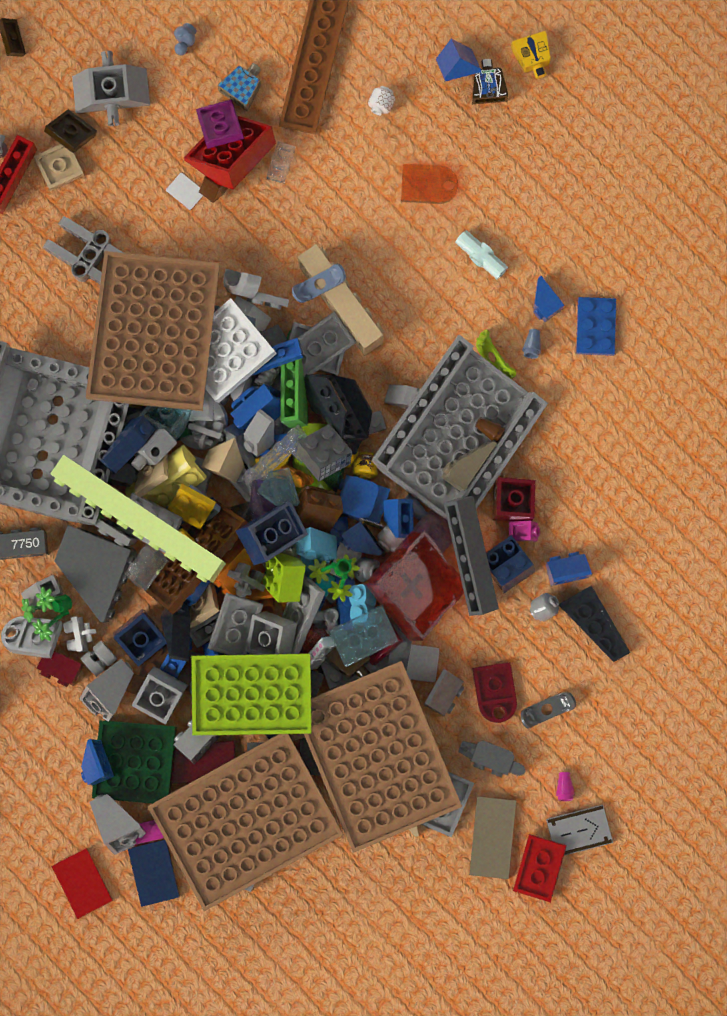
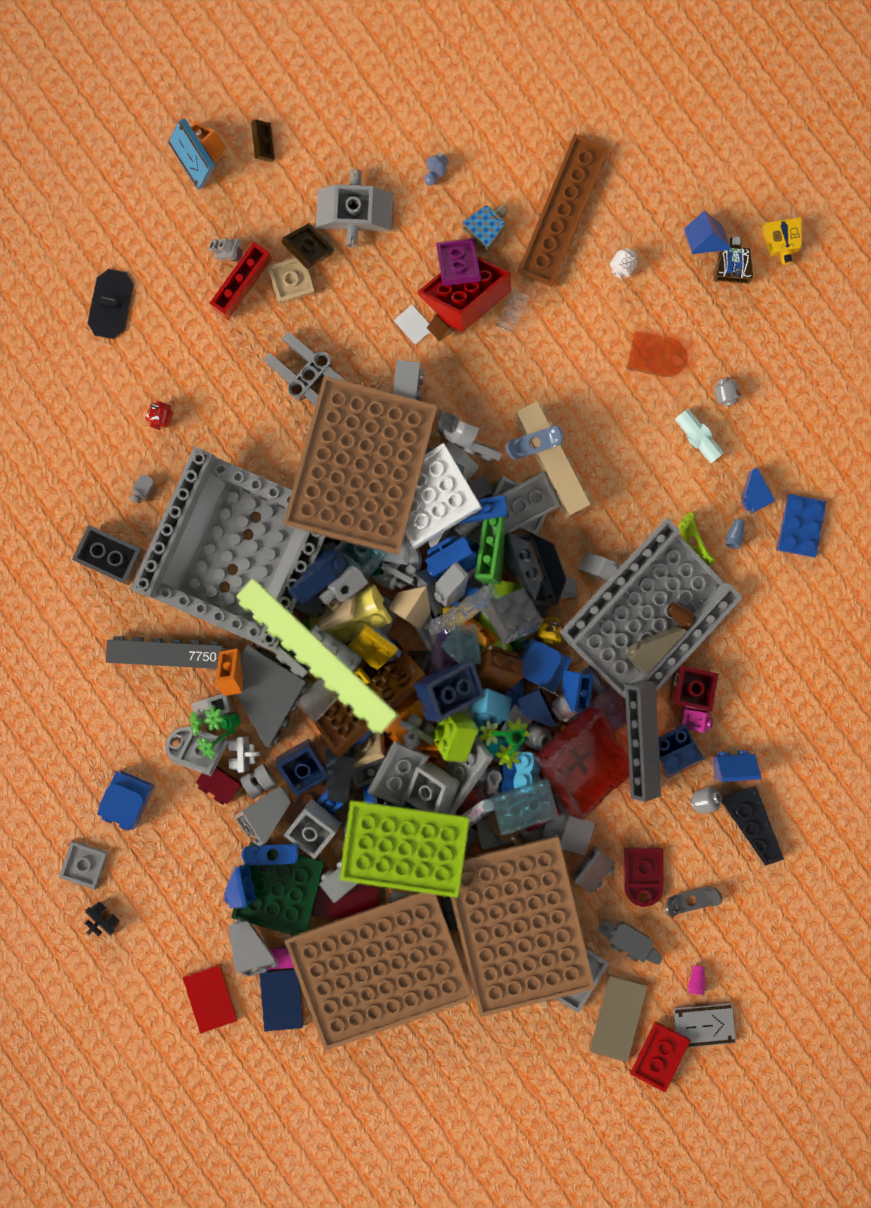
camera: 10 degrees right, 5 degrees up
(54, 553) = (229, 672): none -> orange slope
(109, 729) = (258, 854): none -> blue piece
(188, 243) = (407, 379): none -> light grey brick
(501, 208) = (727, 391): none -> light grey head

